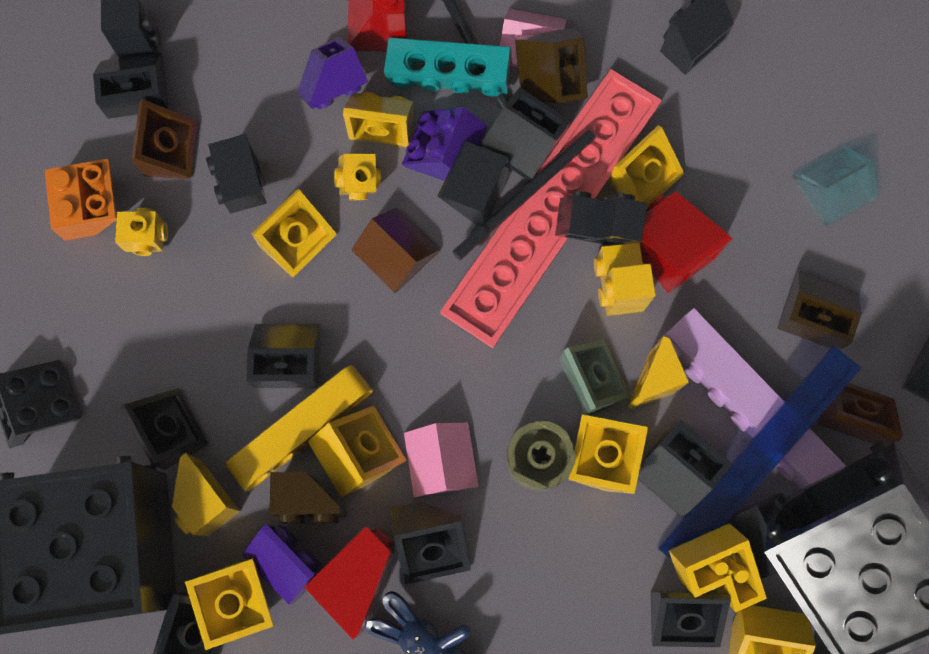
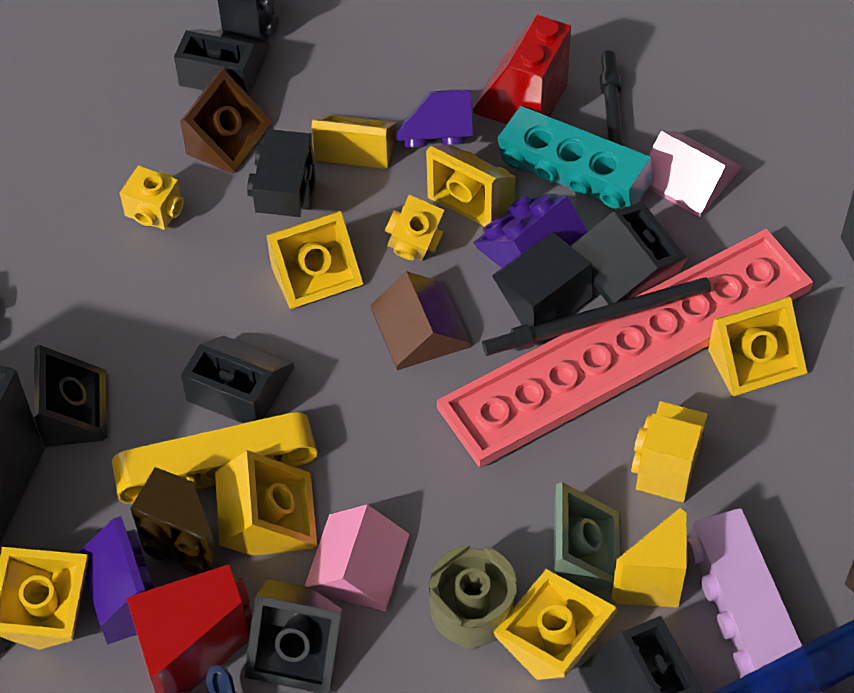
camera: 30 degrees right, 20 degrees down
(81, 199) = (106, 145): orange slope -> none
(200, 499) = (65, 479): yellow slope -> none
(270, 112) = (353, 140): none -> yellow slope
(552, 65) = (693, 196): dark brown slope -> none
(601, 221) = (668, 370): black brick -> none
(679, 240) = (756, 435): red slope -> none

